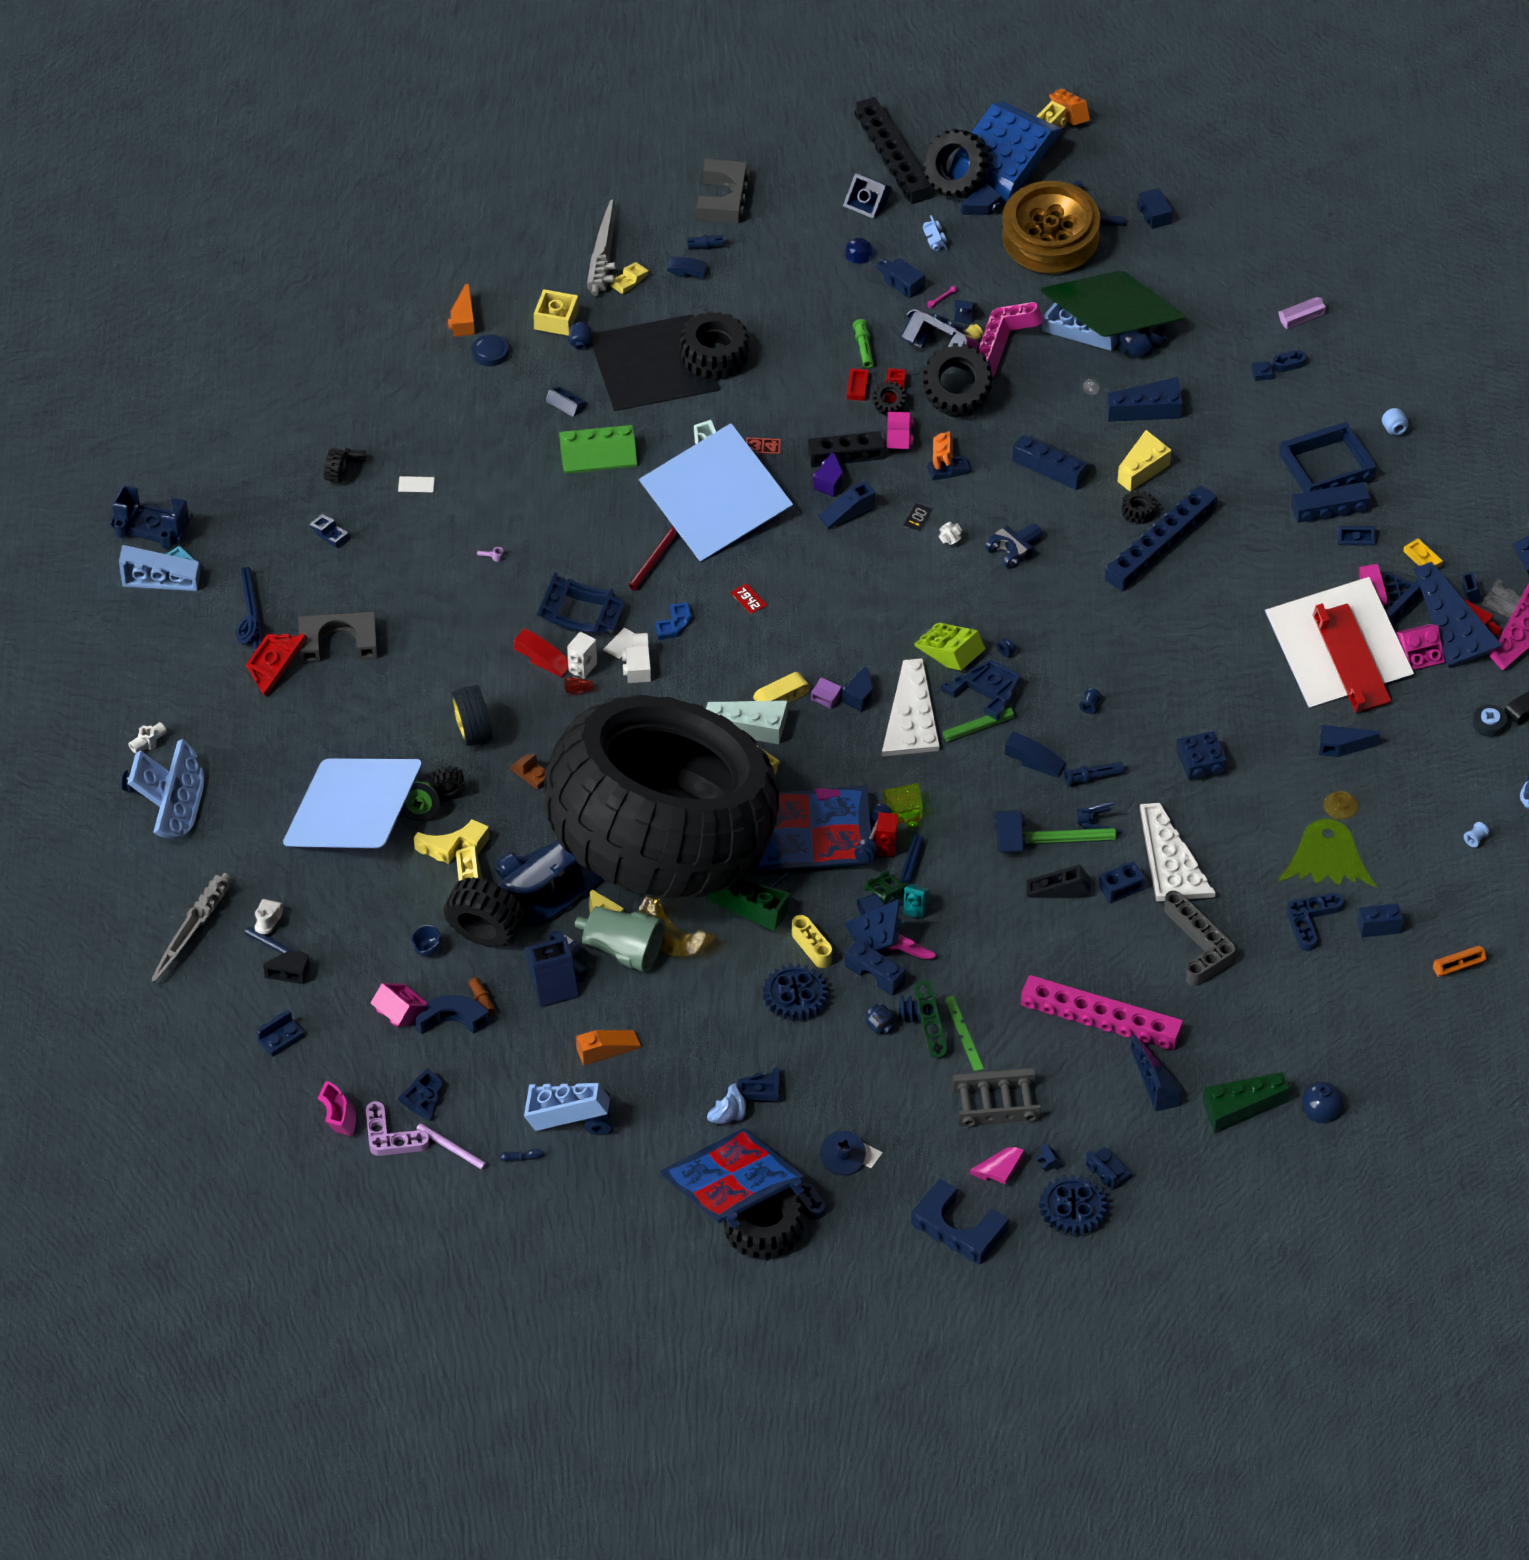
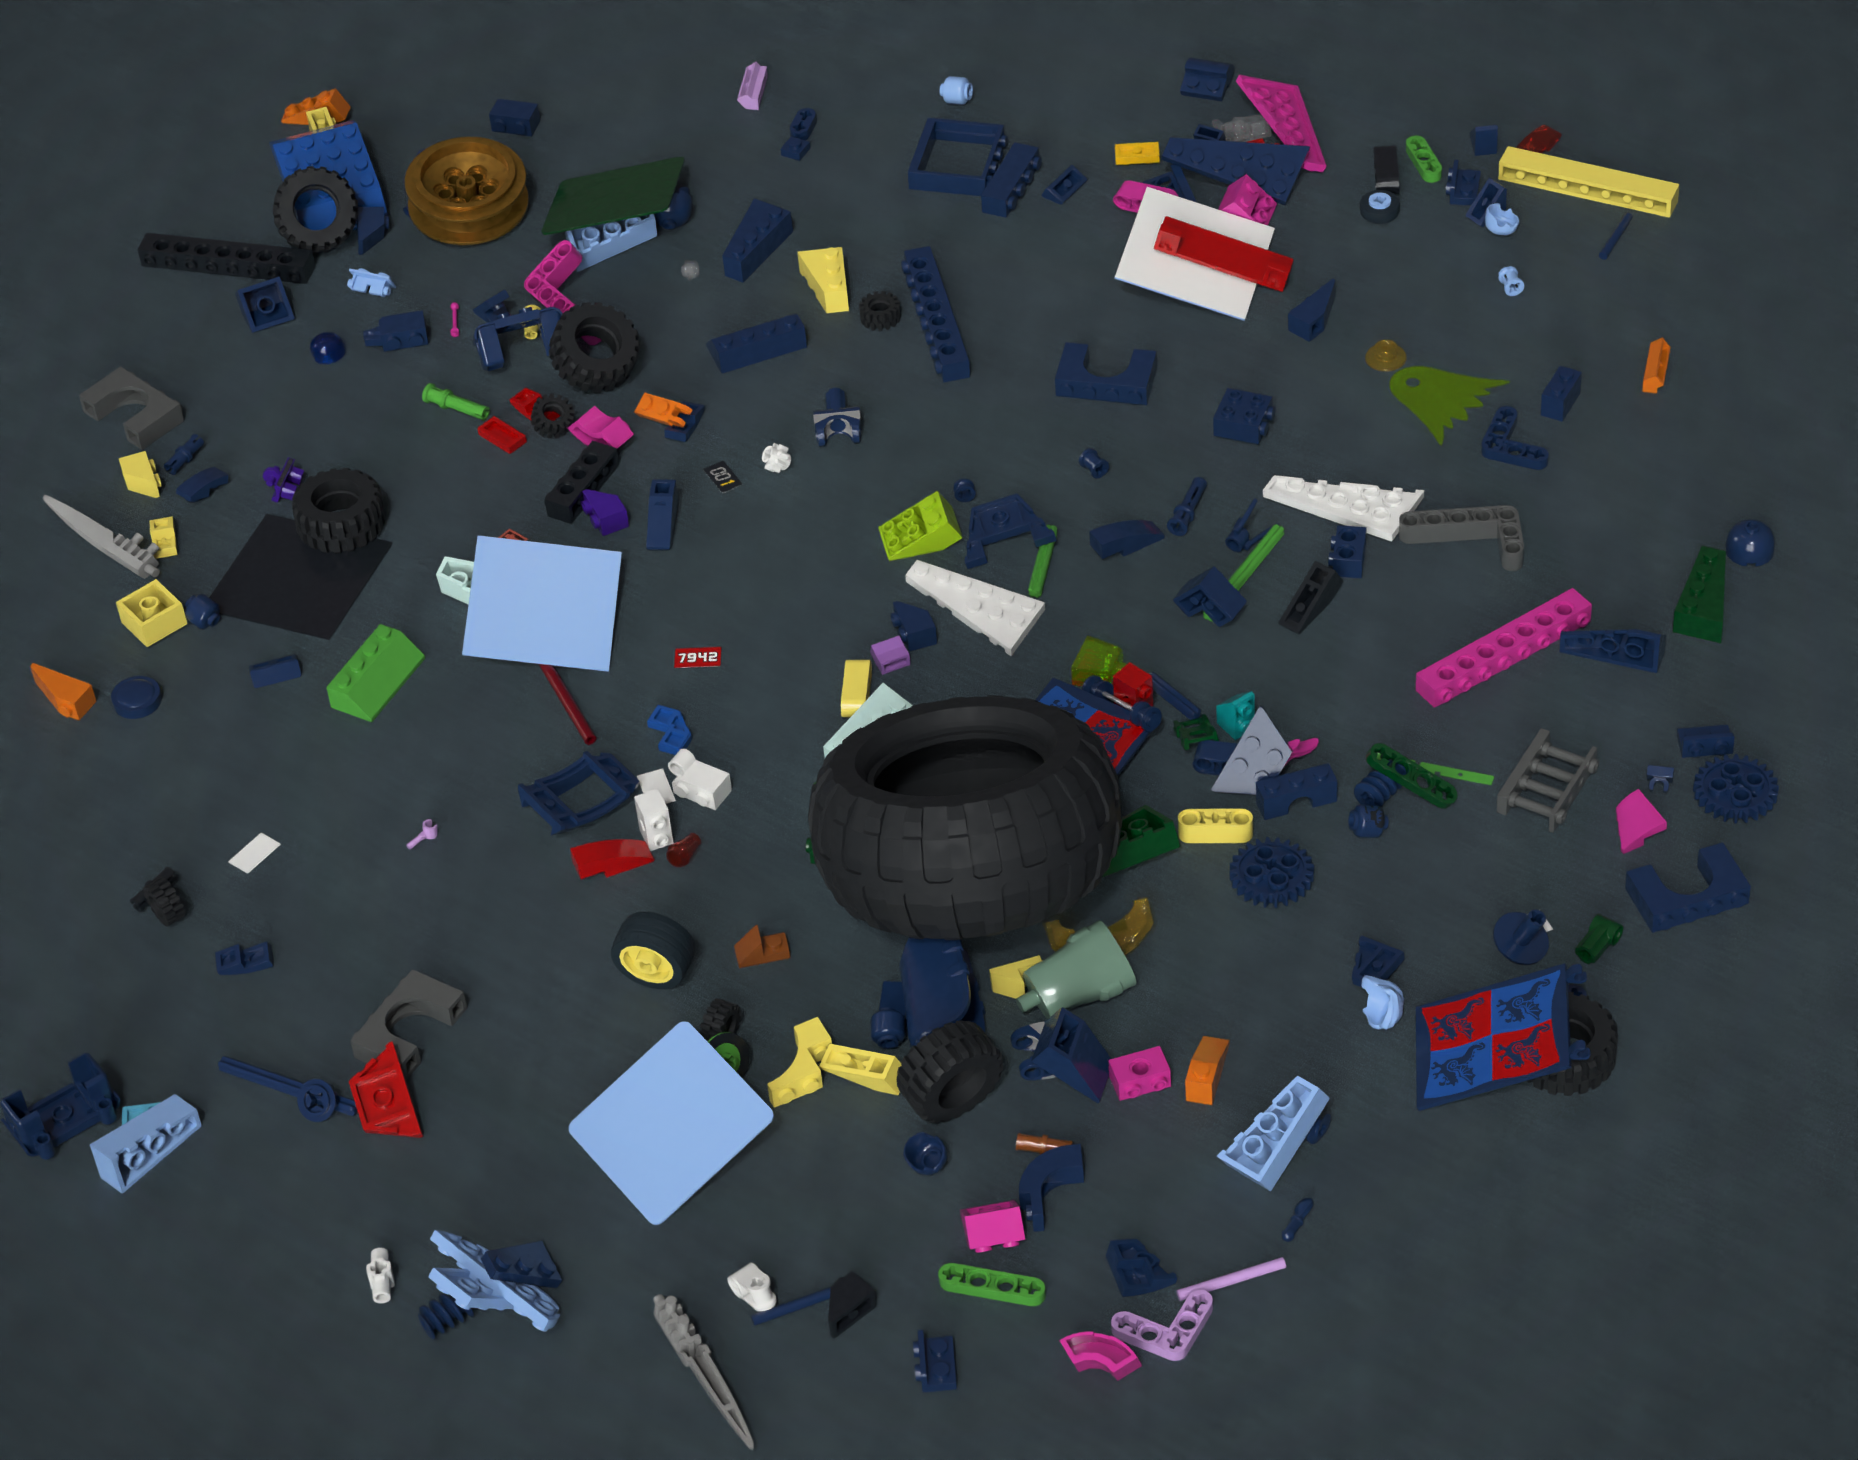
camera: 50 degrees left, 5 degrees down
(196, 796) = (522, 1264): none -> dark blue wing
(360, 1029) = (990, 1288): none -> bright green beam
(573, 1013) = (1139, 1073): none -> dark pink brick
(670, 232) = (139, 474): none -> light yellow slope
(723, 300) = (280, 479): none -> dark purple hips
(883, 1195) = (1600, 935): none -> dark green piece
(1180, 680) = (1129, 387): none -> dark blue arch

